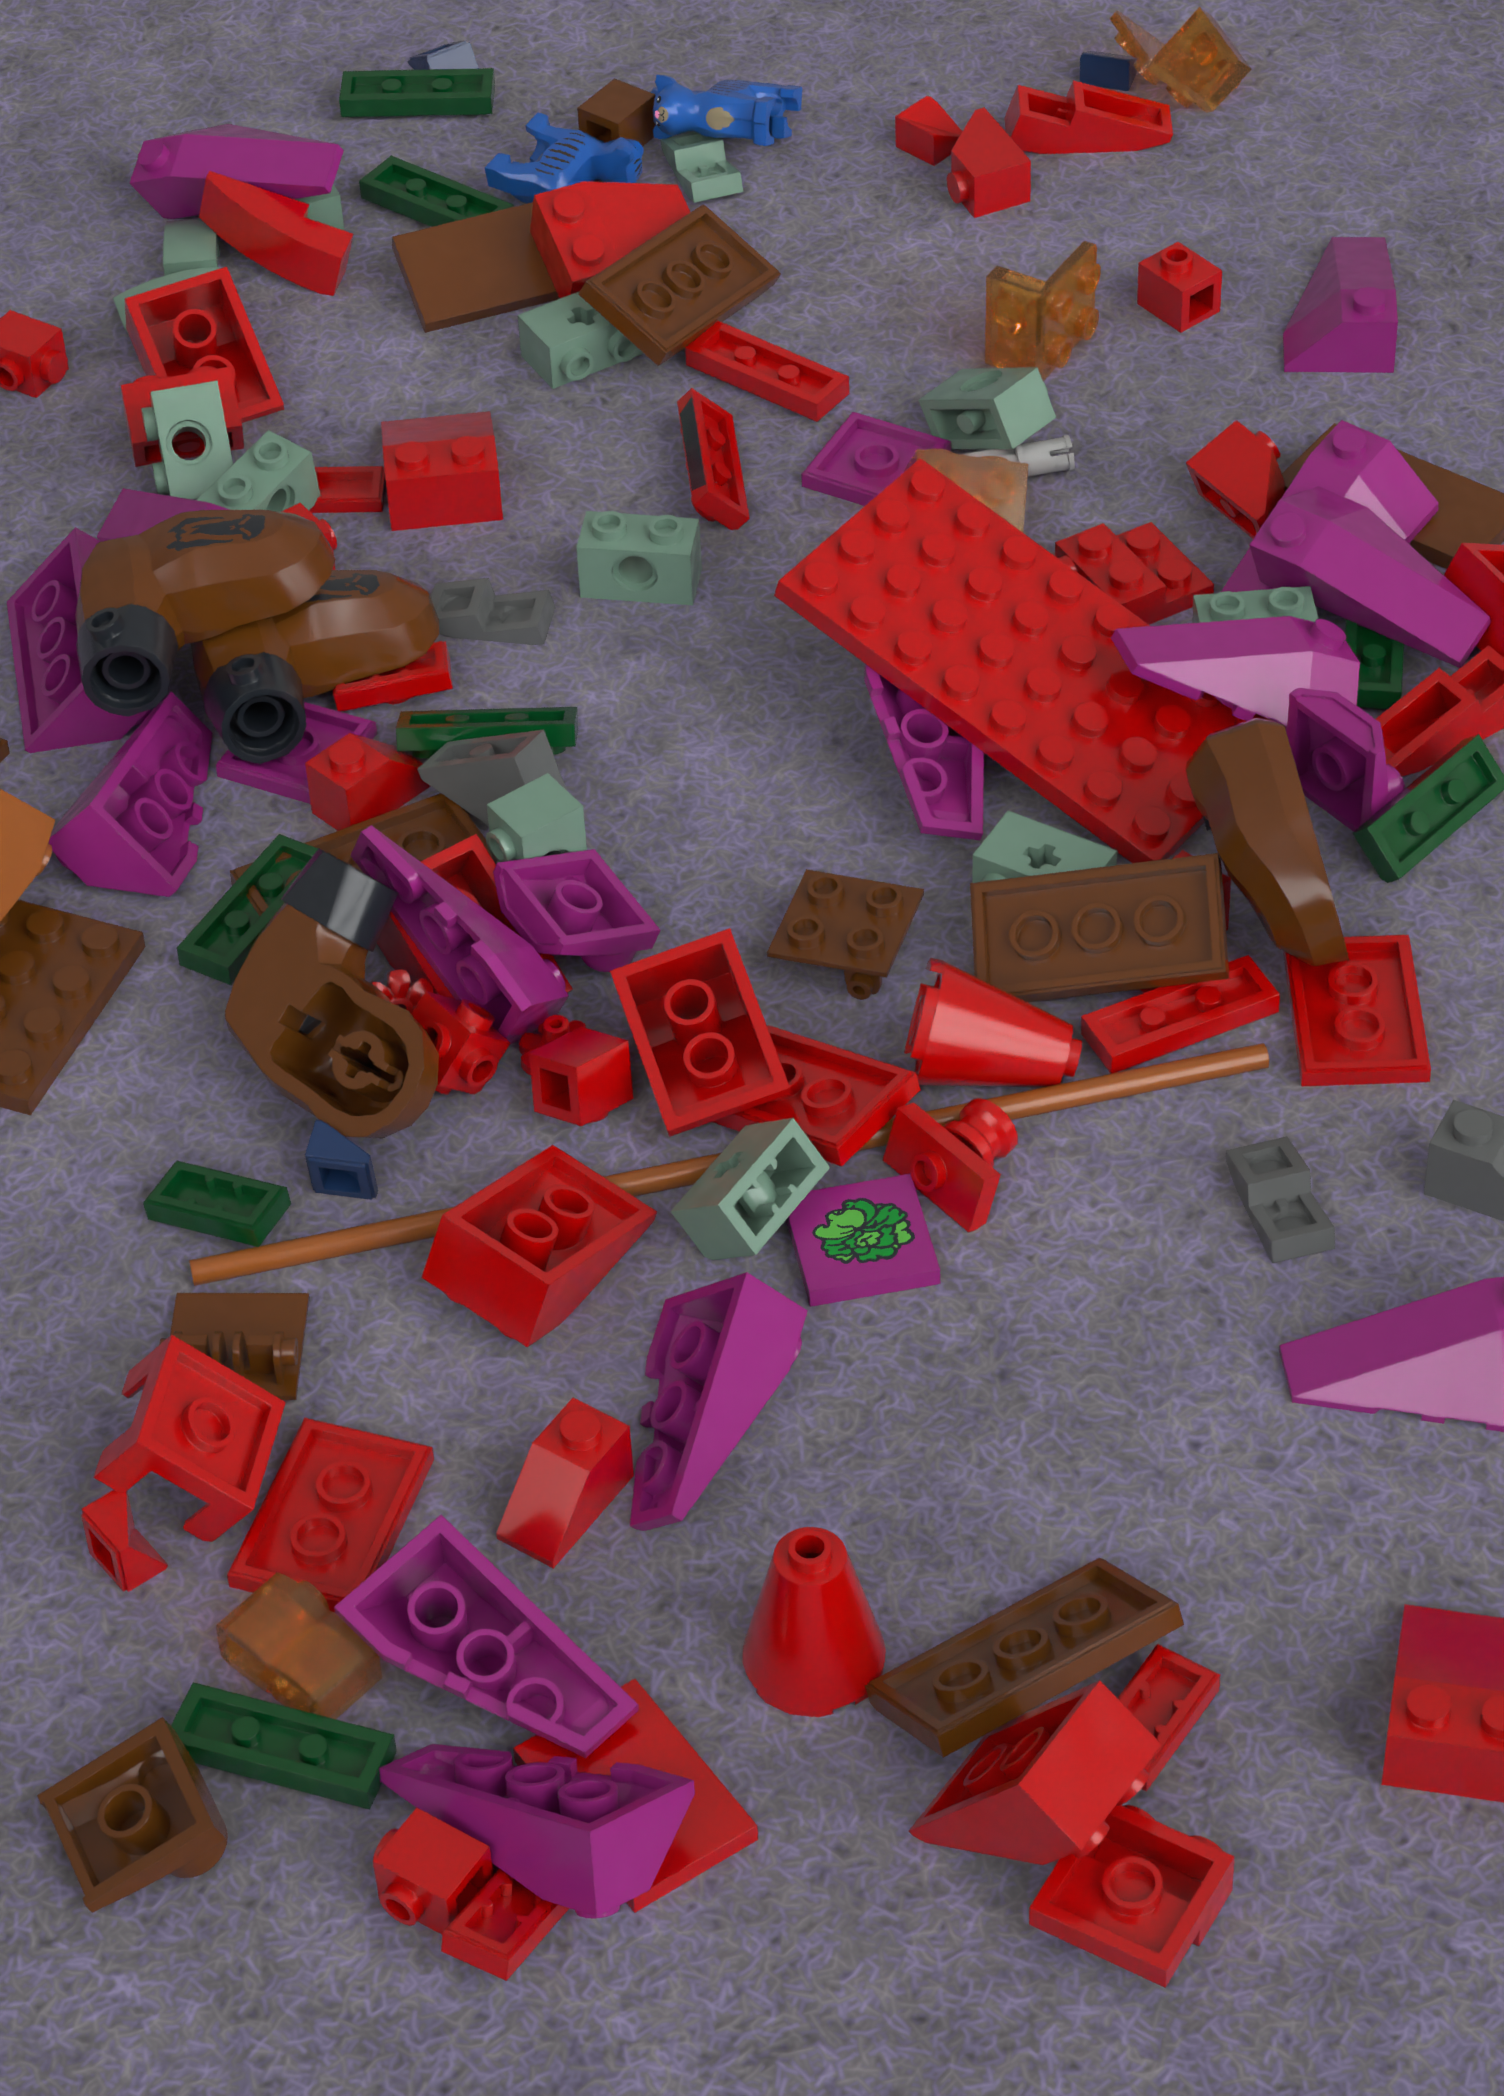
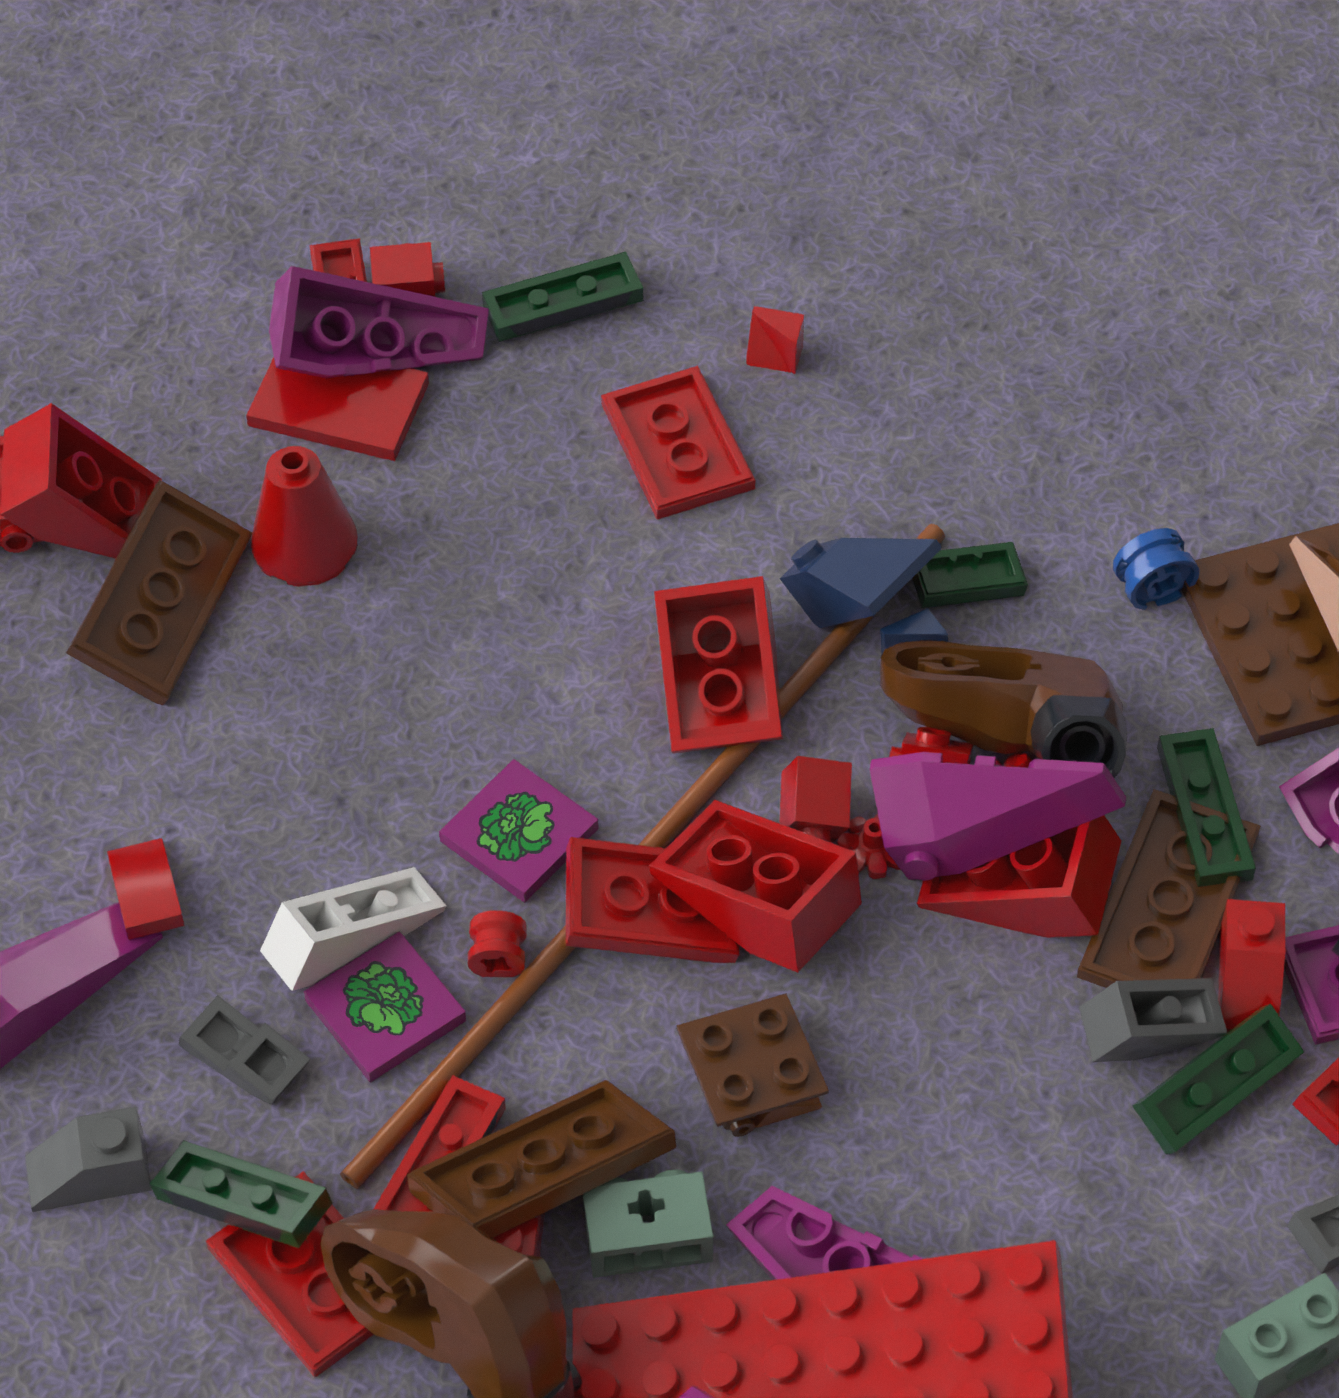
camera: 140 degrees right, 10 degrees up
(58, 1087) = (1155, 567): none -> blue wheel
(136, 1817) = (592, 208): reddish brown slope -> none
(197, 1431) = (777, 381): red panel -> none
(247, 1333) = (852, 495): reddish brown hinge -> none
(298, 1648) = (604, 344): clear orange brick -> none
(322, 1218) = (853, 575): none -> dark blue slope
(473, 1633) = (508, 401): magenta wedge -> none
(535, 822) = (1034, 951): sand green brick -> none
(567, 1482) = (545, 539): red slope -> none
(574, 908) = (951, 917): magenta slope -> none
(716, 1368) = (508, 646): magenta wedge -> none
(750, 1189) = (610, 782): sand green brick -> none
(941, 1167) = (503, 895): red plate -> none
(985, 1036) = (556, 1019): red cone -> none
(1102, 1226) = (335, 926): none -> white slope
(1118, 1166) = (385, 1006): none -> magenta tile
(1168, 1700) = (55, 613): red plate -> none
(1266, 1382) = (145, 888): none -> red slope
(1377, 1058) = (241, 1193): none -> dark green plate

